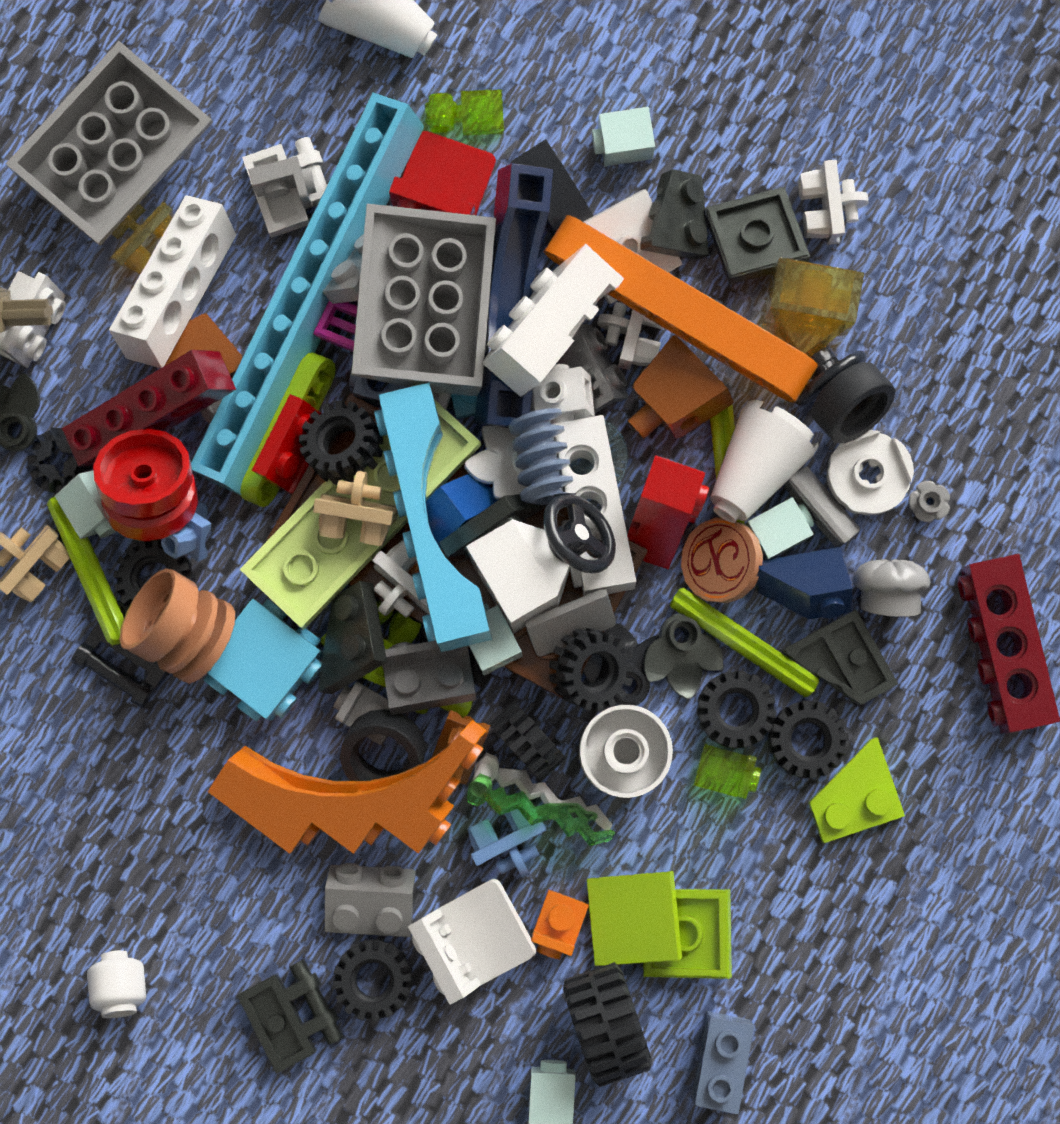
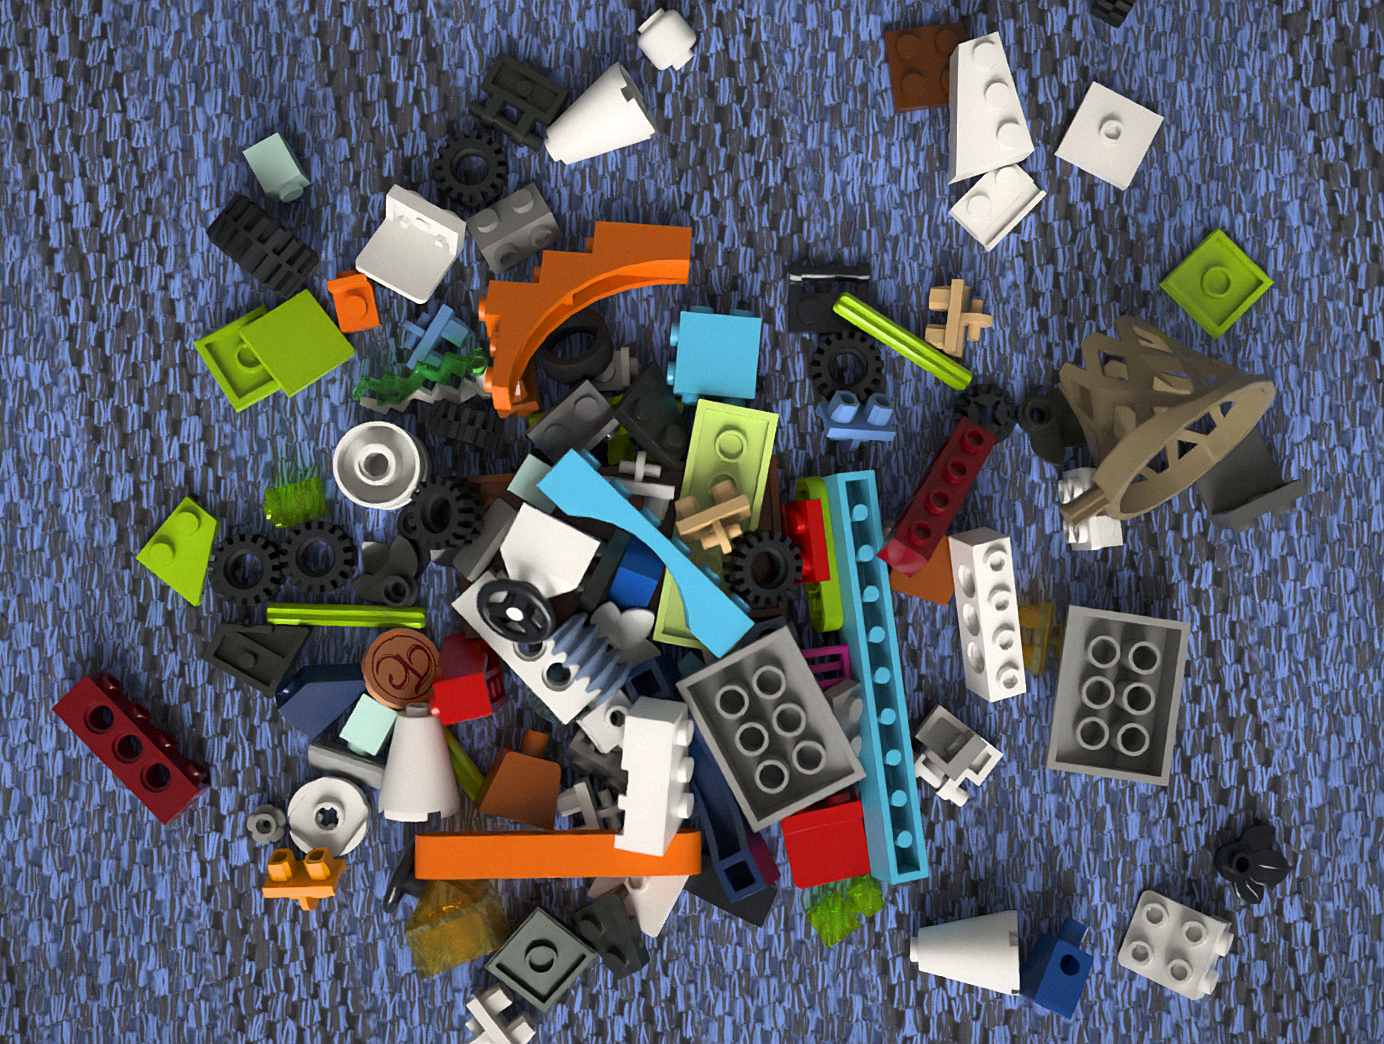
camera: 145 degrees right, 5 degrees up
(83, 506) = (932, 395): light aqua brick -> none
(146, 484) = (897, 432): red wheel -> none
(177, 626) = (796, 336): nougat wheel -> none
(224, 945) = (601, 119): none -> white cone
(624, 136) = (700, 972): light aqua brick -> none
(722, 1062) = (160, 276): sand blue brick -> none
(853, 402) = (369, 865): black tyre -> none
(891, 587) = (251, 732): light grey piece -> none
(923, 430) = (303, 879): none -> light orange hips

